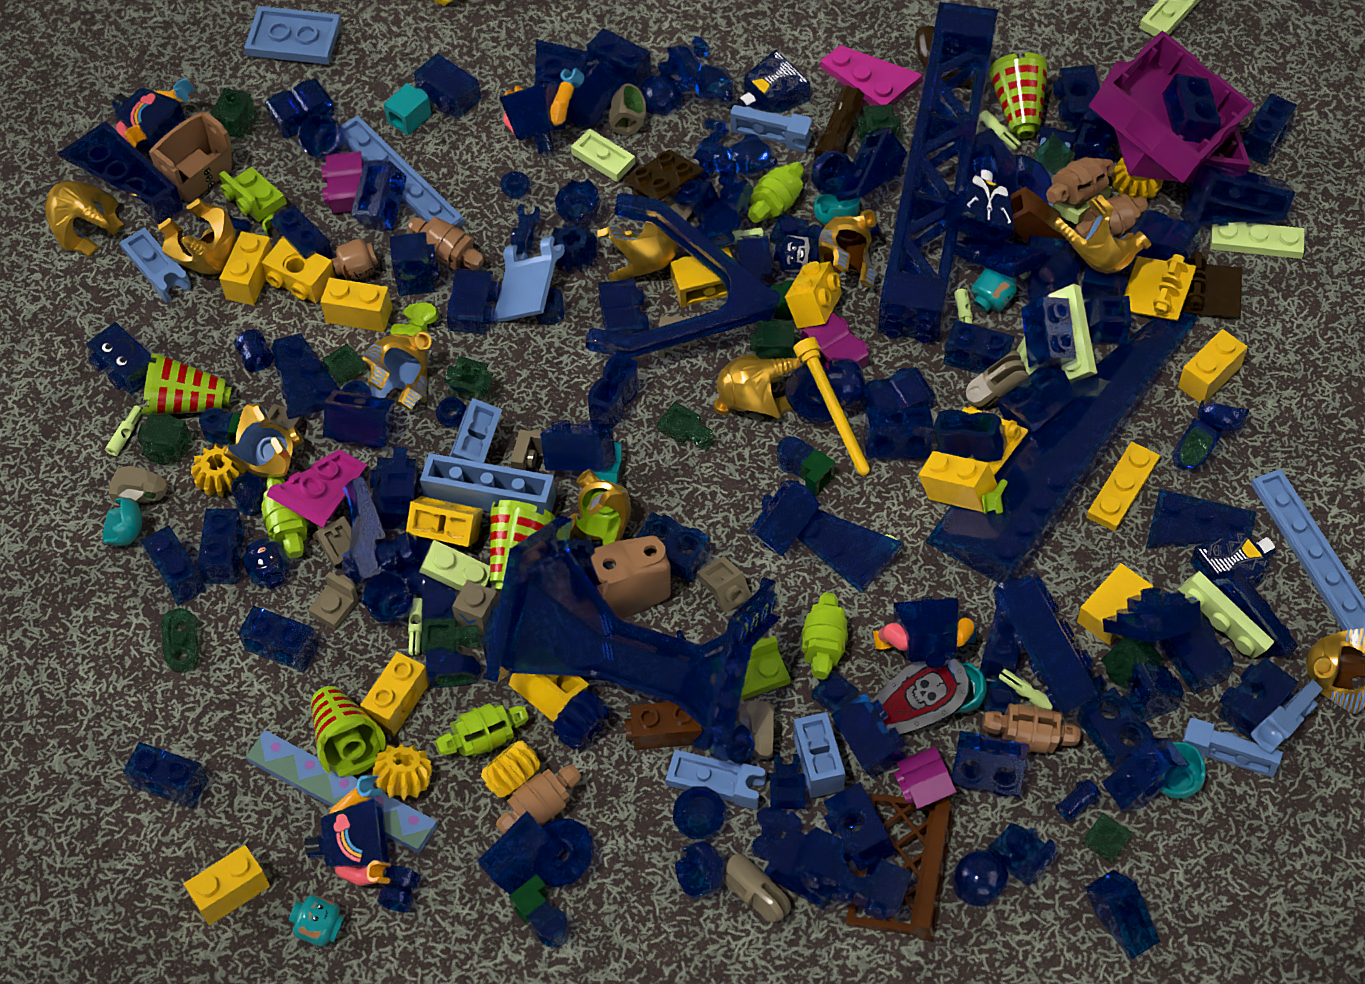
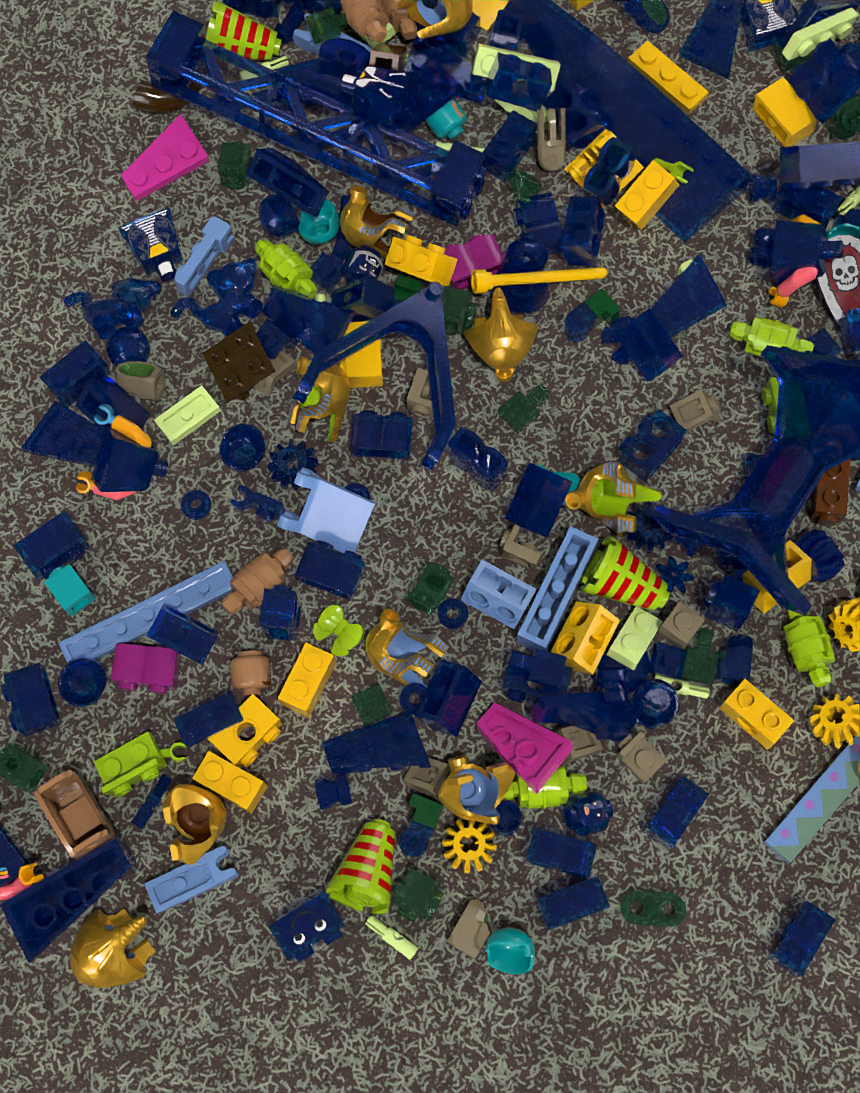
camera: 75 degrees left, 15 degrees up
(344, 733) = (787, 767): lime cone -> none
(638, 578) = (689, 476): medium nougat piece -> none
(846, 111) = (203, 189): dark brown axle -> none
(939, 368) = (524, 184): none -> clear green plate

